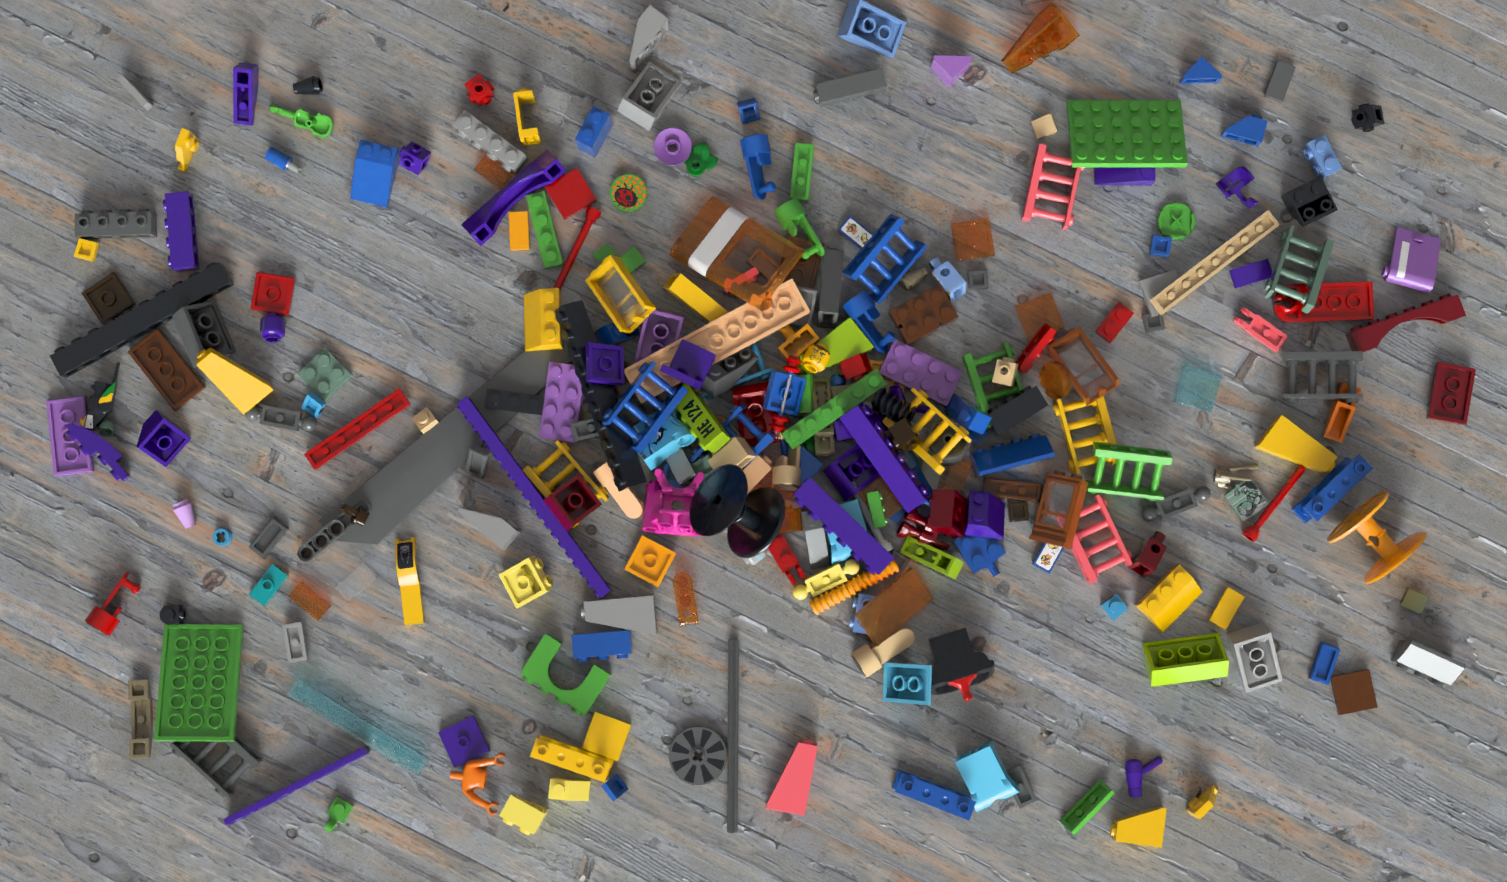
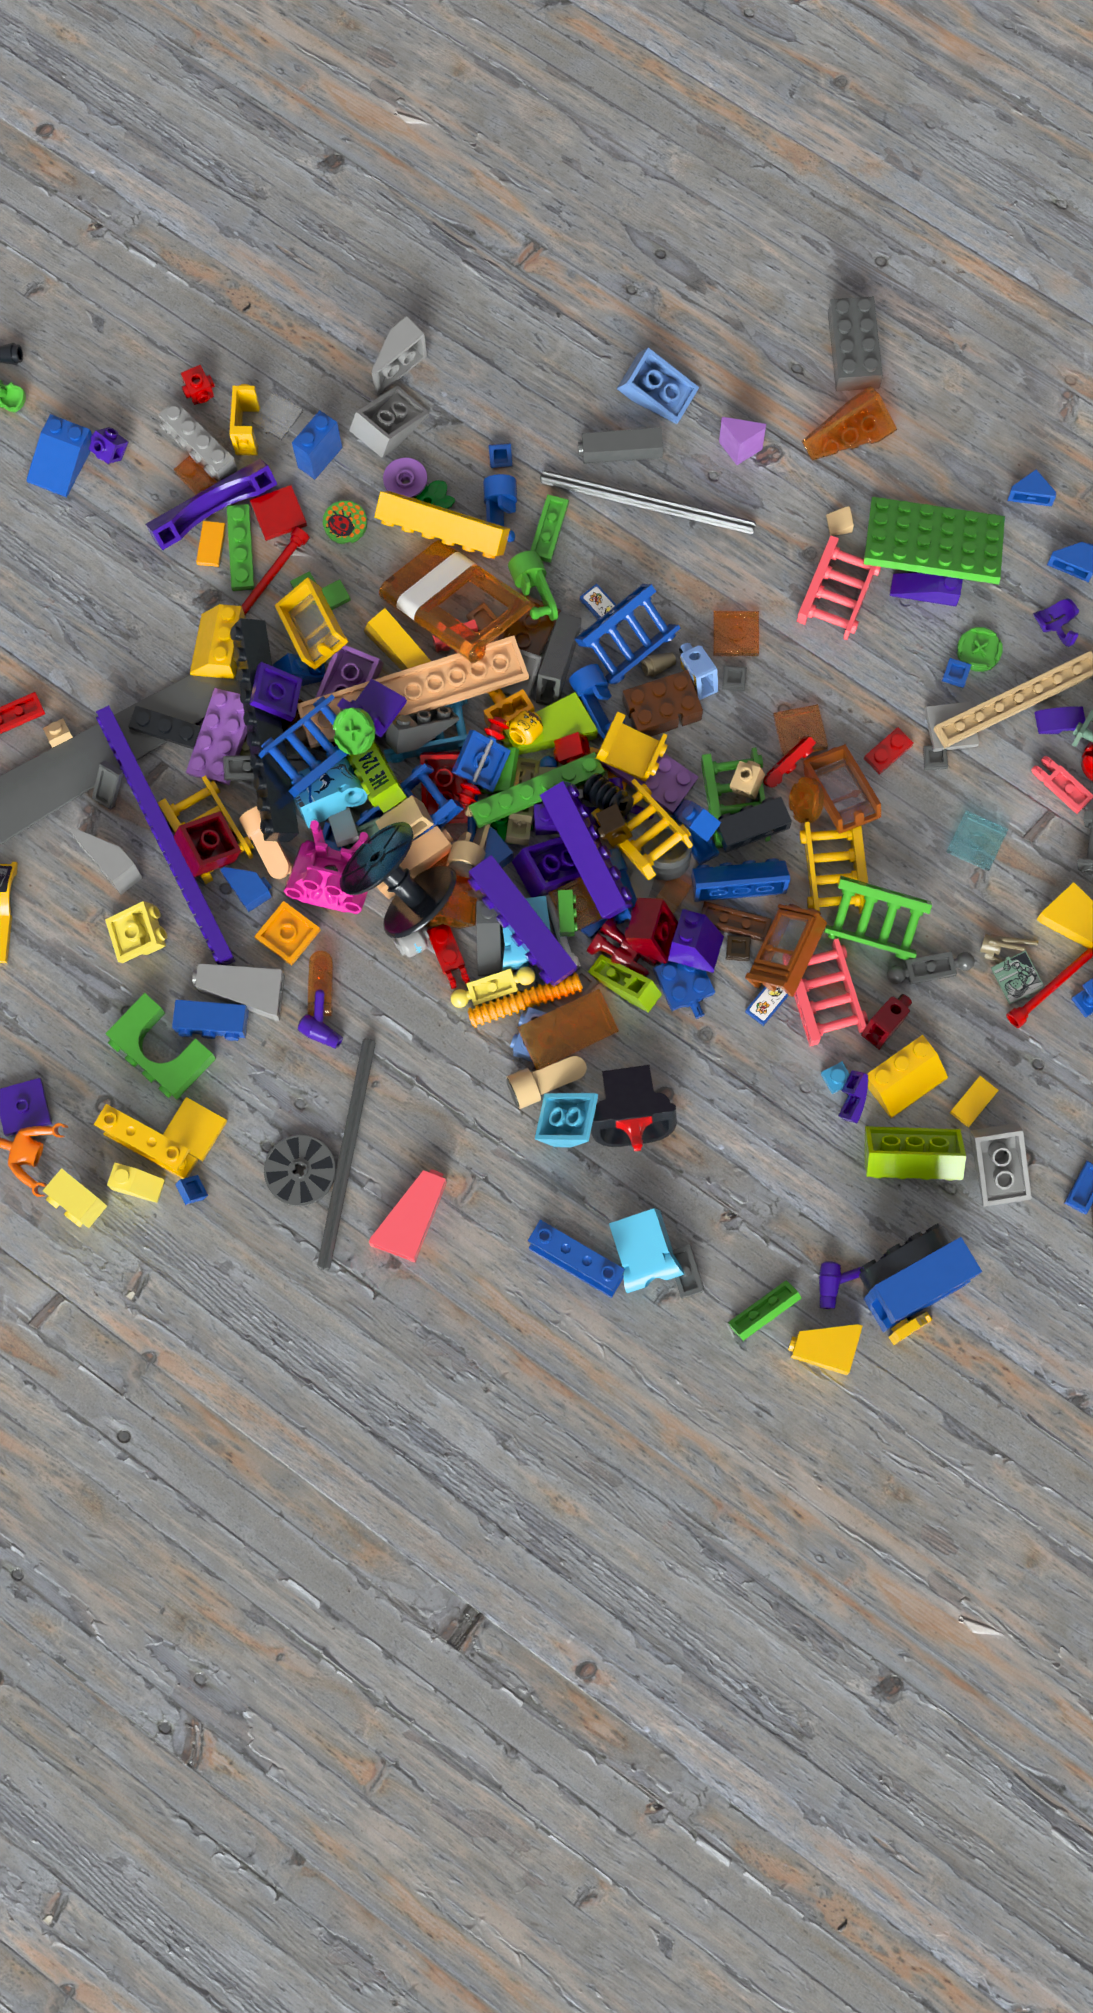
camera: 15 degrees right, 10 degrees down
(610, 527) = (247, 886): none -> blue slope
(678, 392) = (354, 731): none -> bright green tile
(689, 638) = (315, 1028): none -> dark purple piece
(712, 185) = (442, 523): none -> yellow brick
(880, 134) = (647, 502): none -> axle
(906, 362) = (631, 750): none -> yellow panel
(1133, 622) = (856, 1089): none -> dark purple slope
(1206, 767) = (916, 1275): none -> blue piece

